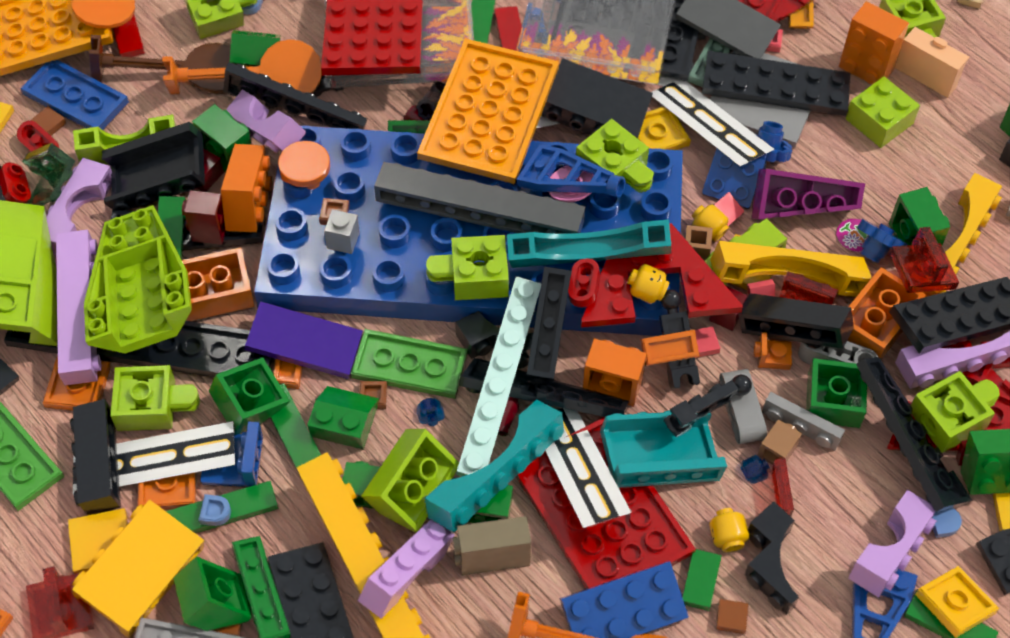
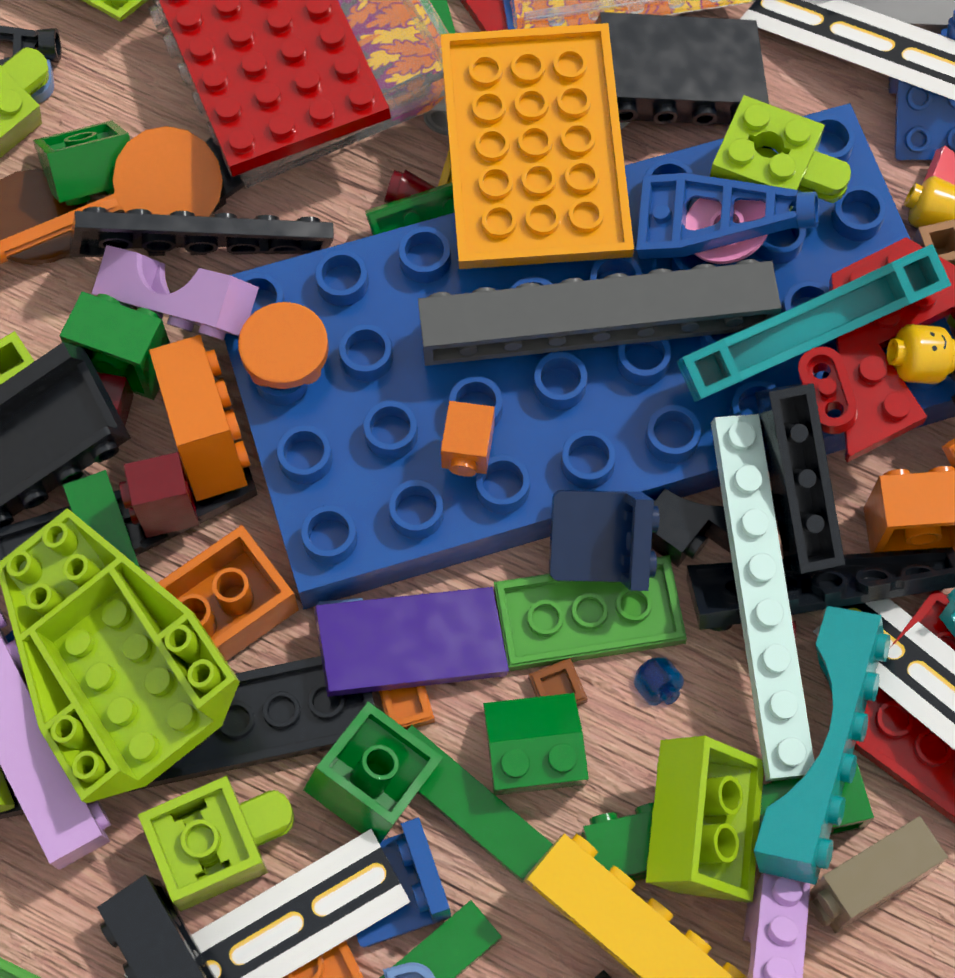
camera: 20 degrees left, 10 degrees up
(68, 396) = (81, 882): orange tile -> none
(332, 204) = (370, 410): tile -> none
(342, 231) = (405, 443): light grey brick -> none
(377, 241) = (467, 438): none -> orange brick
(428, 320) = (603, 537): none -> dark blue bracket
(429, 102) = (423, 153): black piece -> none
(473, 279) = (642, 441): lime brick -> none
(663, 130) = (795, 76): yellow tile -> none

